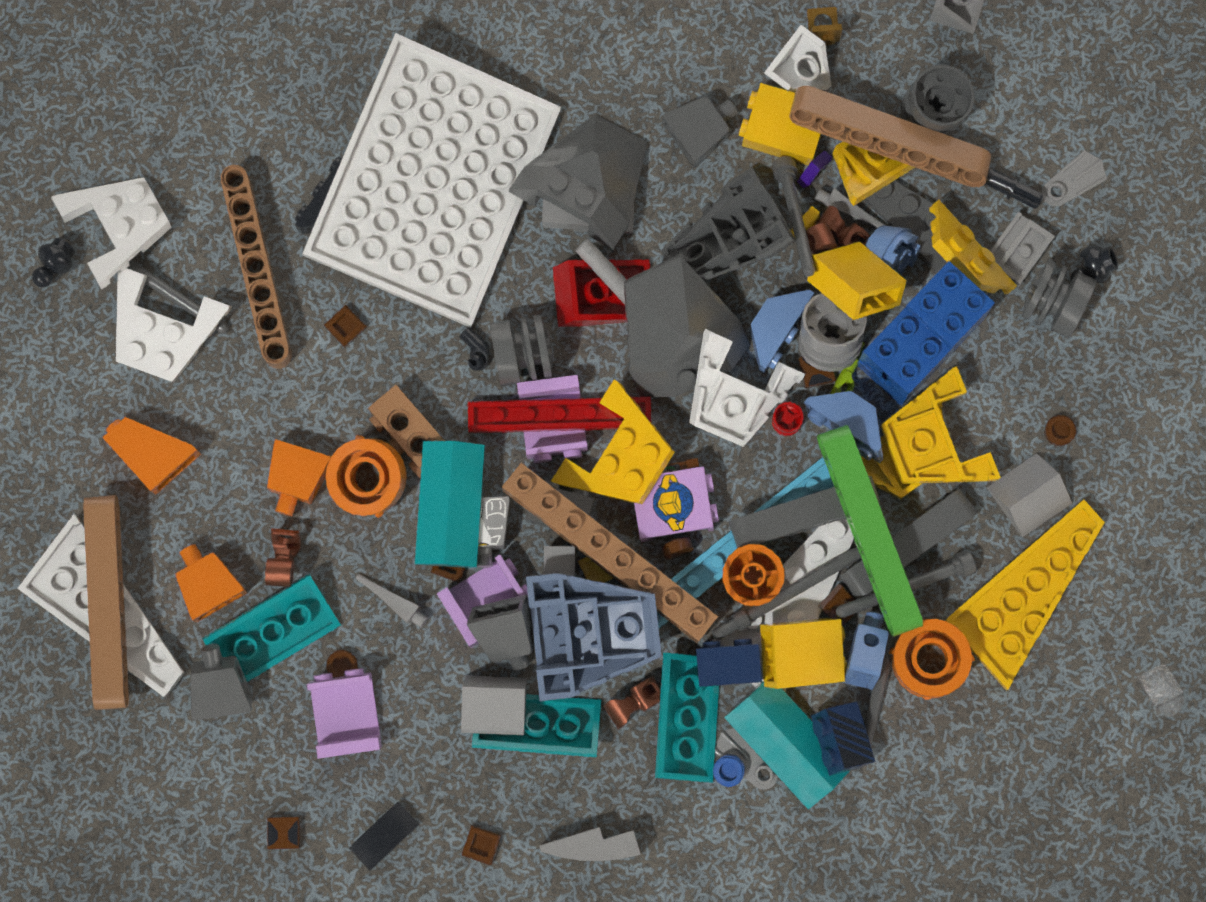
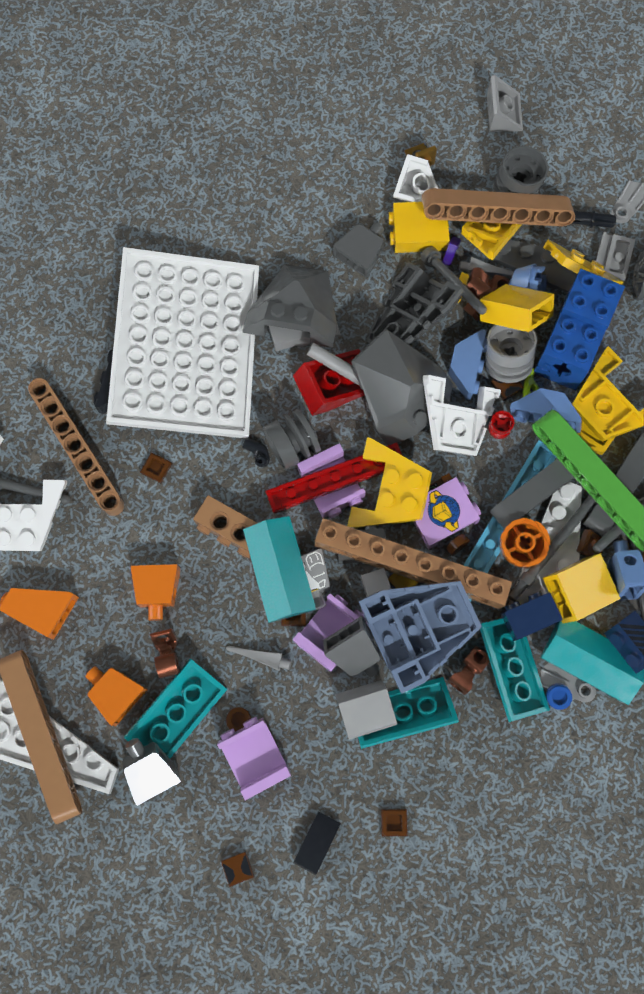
camera: 20 degrees left, 5 degrees down
(342, 476) = (189, 570): orange piece -> none
(592, 846) = (481, 793): light grey slope -> none

